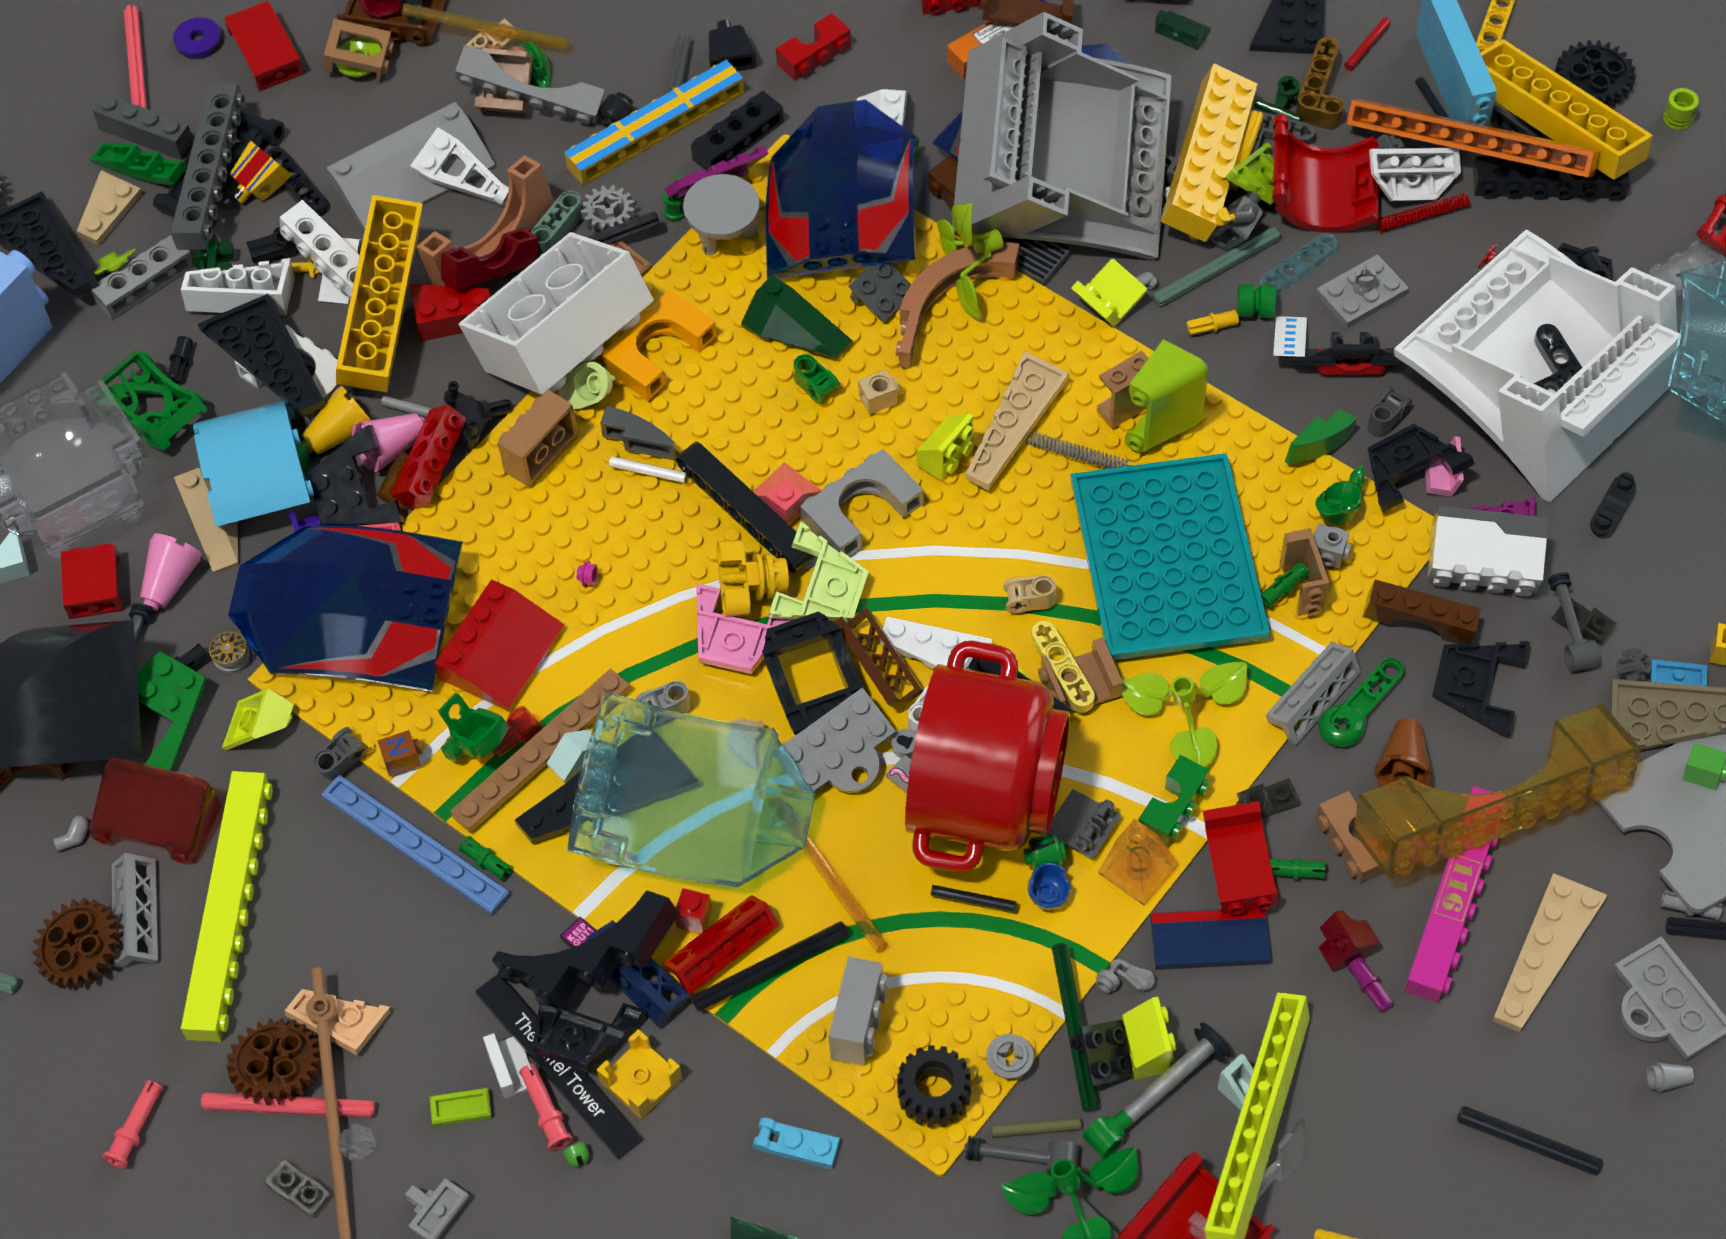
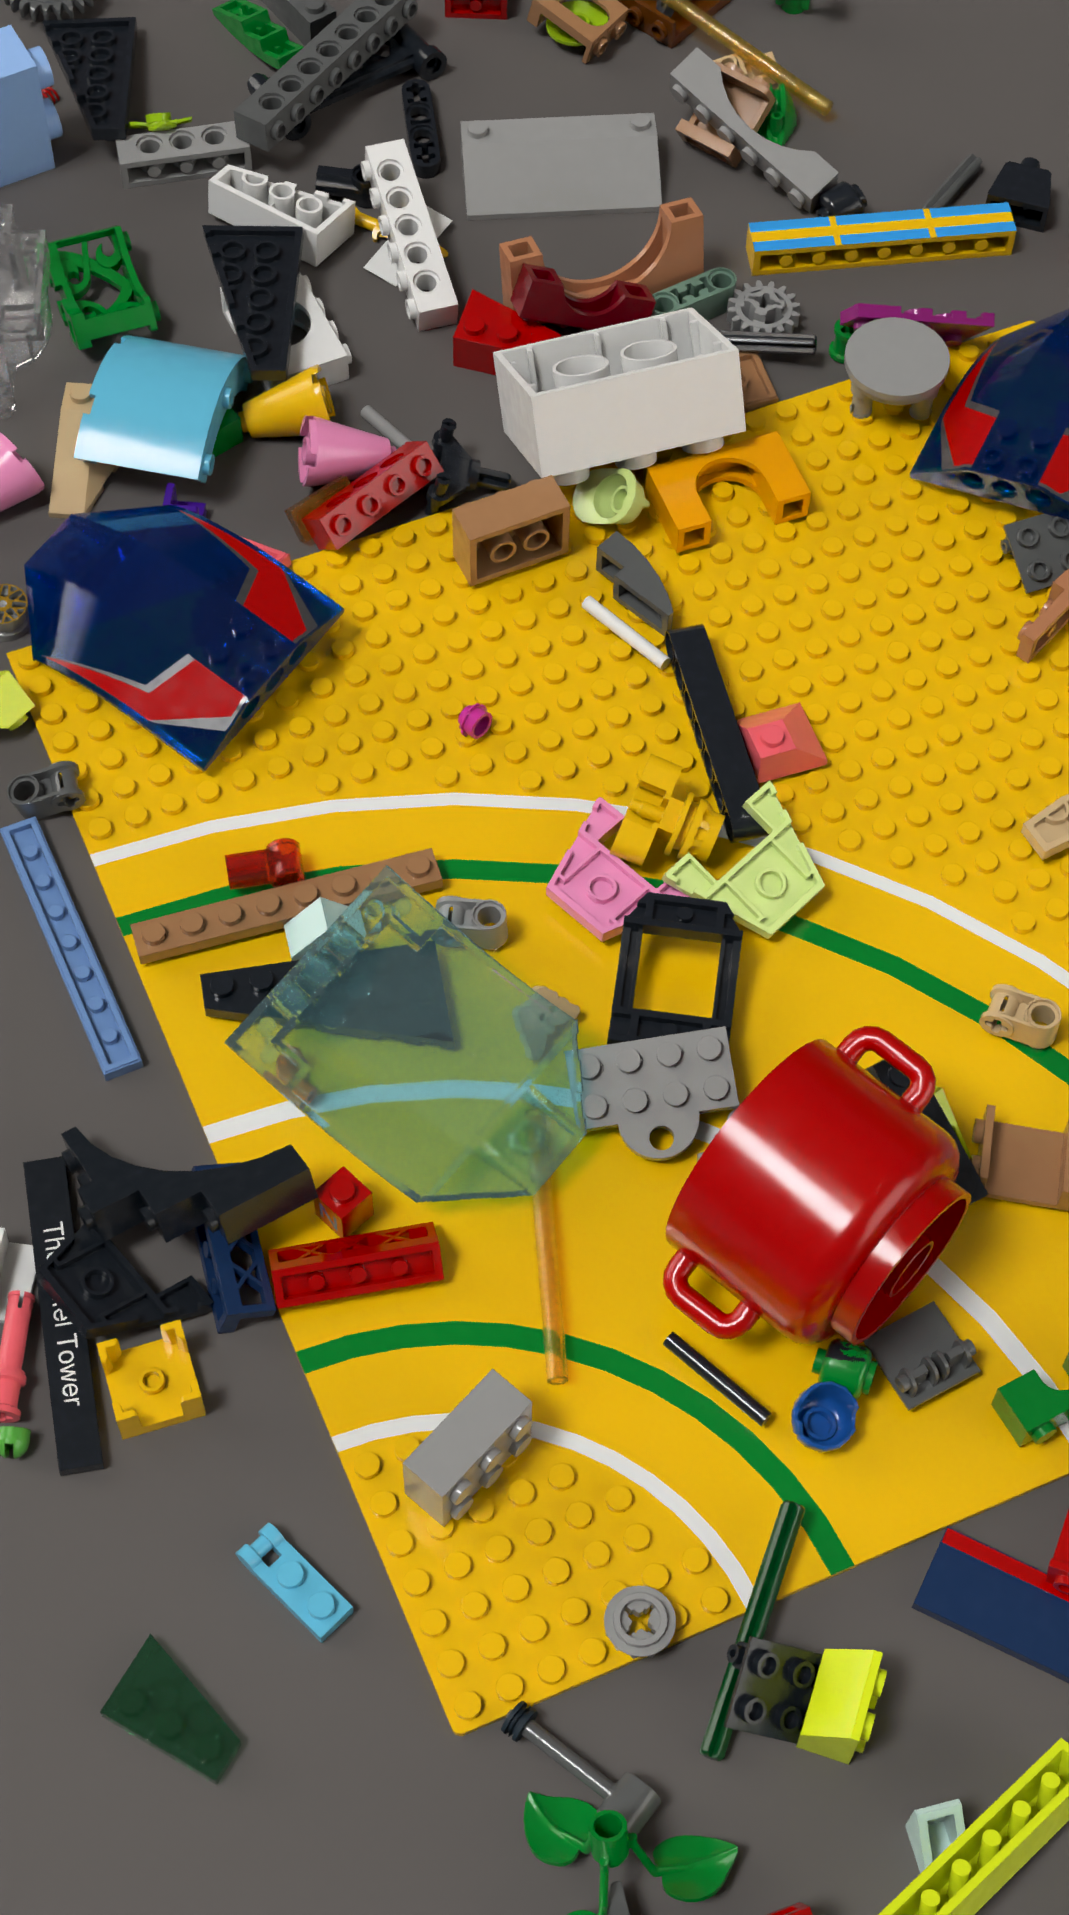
camera: 25 degrees right, 0 degrees up
(106, 207) = (196, 66): tan wing -> none
(179, 358) = (166, 261): black axle -> none
(216, 252) = (278, 163): dark green hips -> none
(257, 174) = (380, 98): yellow torso -> none
(341, 490) = (247, 484): black wing -> none
(379, 294) = (425, 281): yellow brick -> none
(400, 752) = (116, 824): dark orange brick -> none
(436, 153) = (593, 162): white plate -> none
(474, 733) = (209, 842): green piece -> none
(485, 858) = (140, 1005): green pin -> none
(498, 646) = (313, 754): red slope -> none
(577, 933) = (191, 1154): tile -> none
(738, 131) = (989, 288): black brick -> none
(769, 966) = (400, 1326): black axle -> none
(787, 317) = (907, 531): dark green wedge -> none
(817, 380) = (896, 616): green piece -> none
(870, 661) = (760, 1000): reddish brown fence -> none
(874, 400) = (969, 671): tan brick -> none
(876, 476) = (903, 771): light grey arch -> none
(925, 642) = (846, 1007): white wing -> none
(929, 1064) = (517, 1571): black tyre -> none
(947, 446) = (1018, 778): neon yellow slope -> none
(1036, 1127) = (622, 1739): olive bar -> none
(1062, 666) = (1015, 1132): light yellow beam -> none
(1108, 1133) = (711, 1805): piece -> none
(1138, 862) = (967, 1449): clear yellow slope -> none
(1139, 977) = (882, 1610): light grey piece -> none

